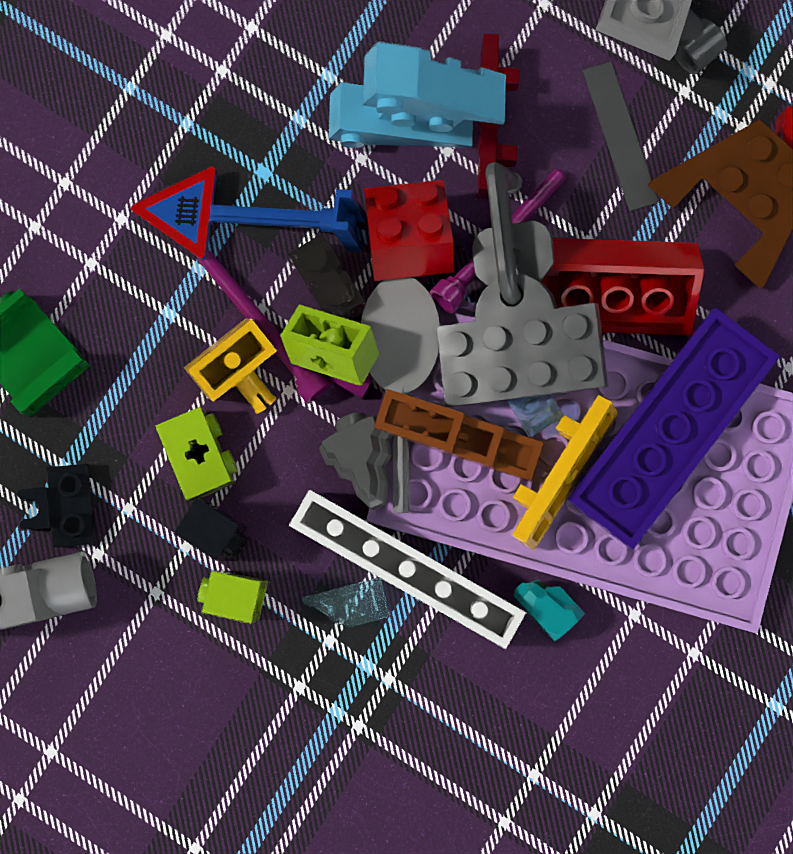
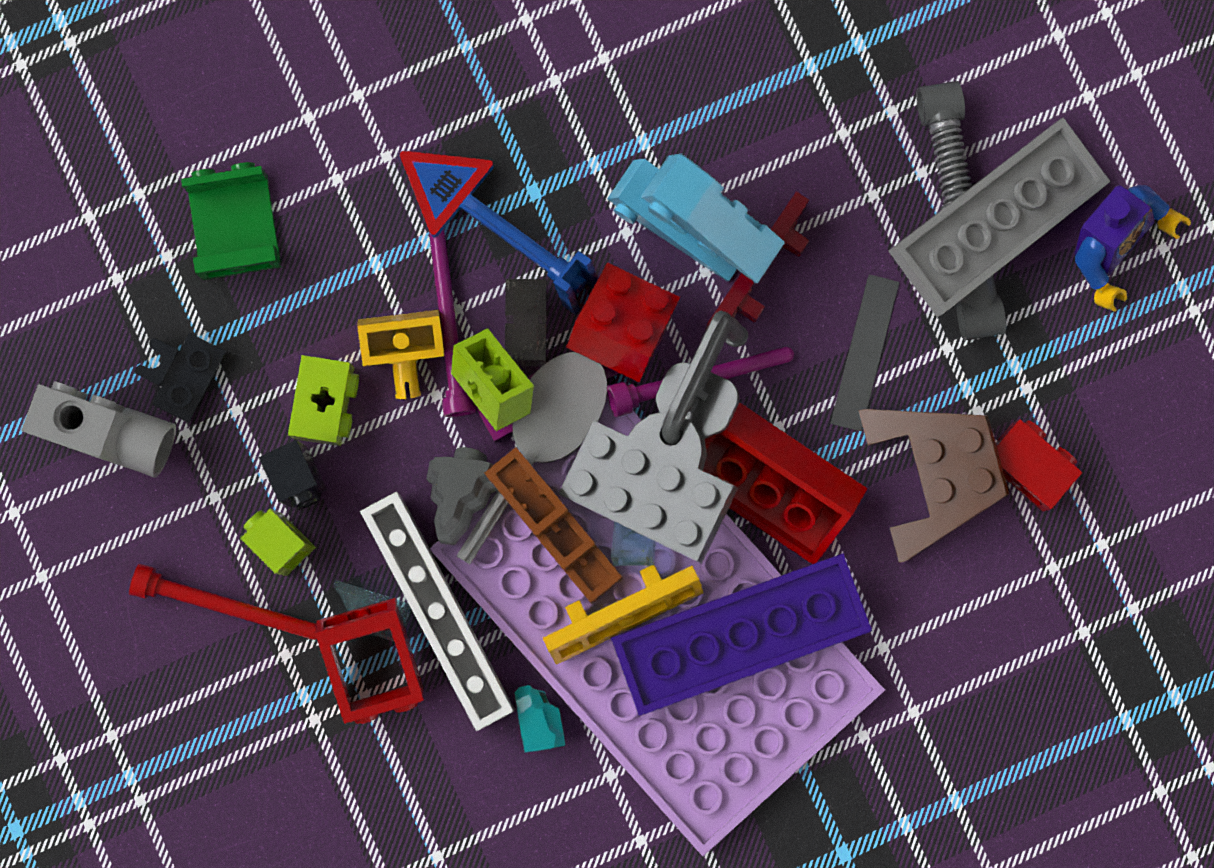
camera: 30 degrees right, 0 degrees up
(144, 699) = (147, 583): none -> red piece
(348, 621) = (361, 623): none -> red window

